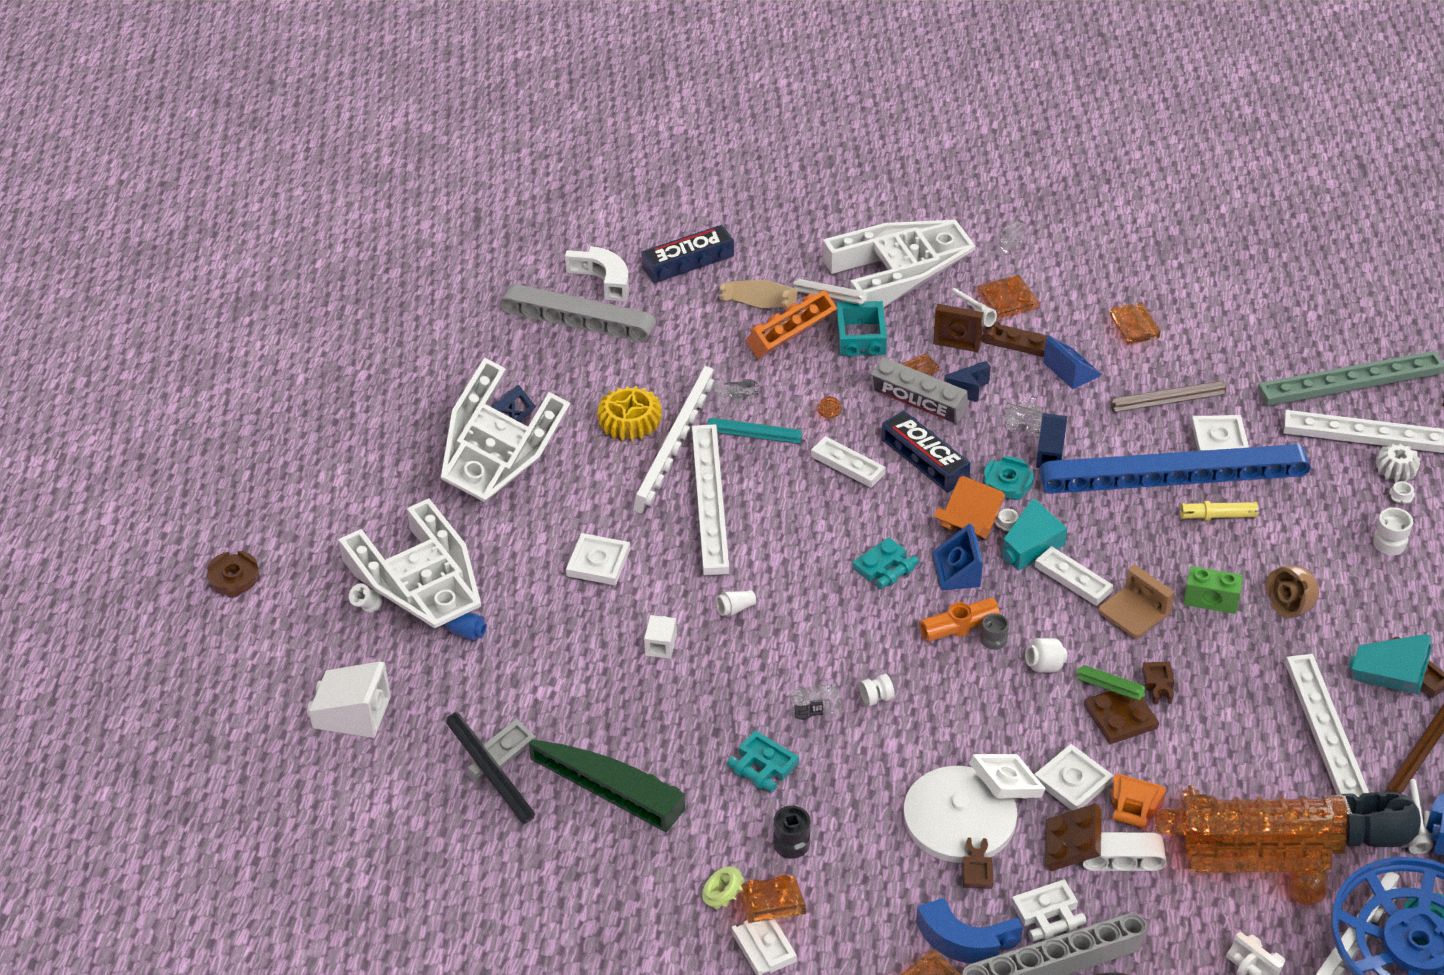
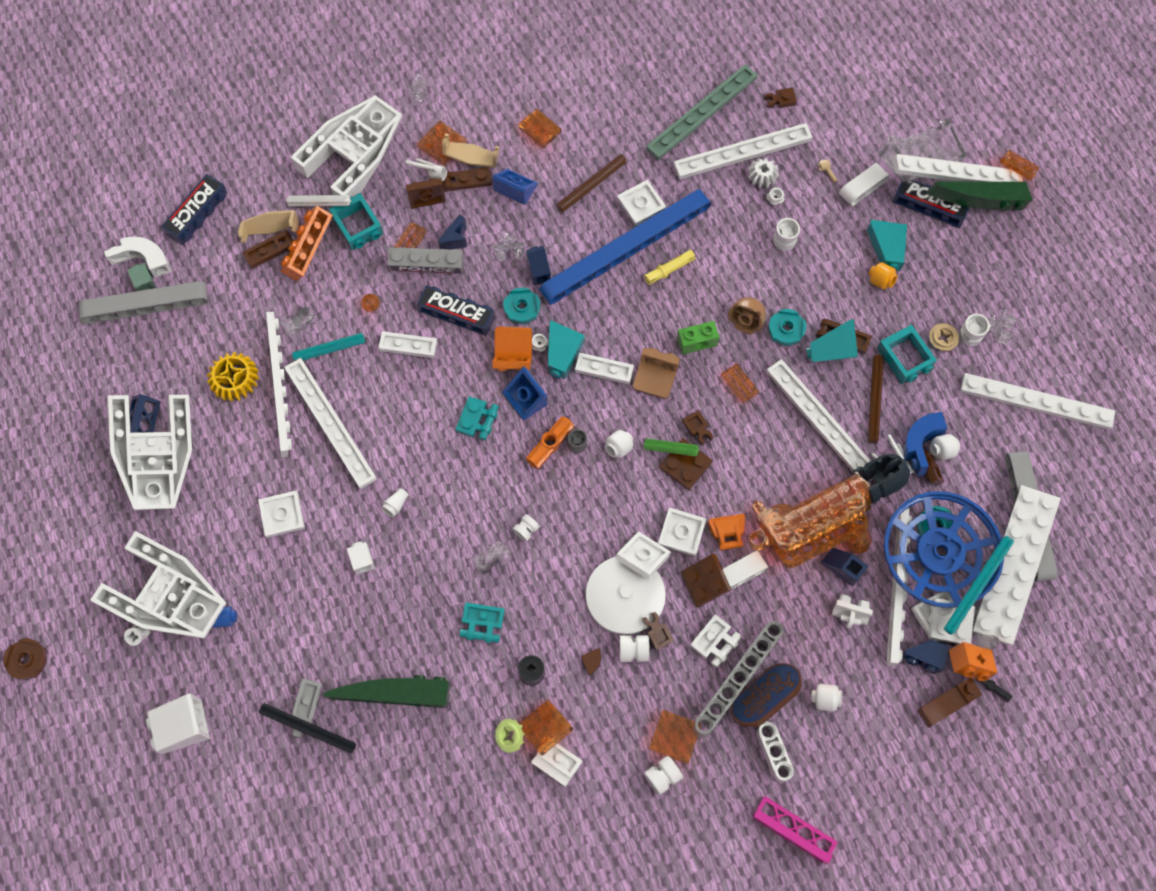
camera: 30 degrees left, 25 degrees up
(590, 287) = (141, 277): none -> sand green brick
(743, 317) = (268, 249): none -> reddish brown plate
(875, 861) = (592, 660): none -> reddish brown tile
(931, 866) = (634, 648): none -> white wheel
(963, 941) = (674, 694): blue arch -> none
(1033, 314) = (470, 153): none -> tan piece
(1239, 645) = (744, 377): none -> clear orange tile
(1275, 906) = (844, 565): none -> dark blue slope
(1343, 640) = (784, 337): none -> teal plate

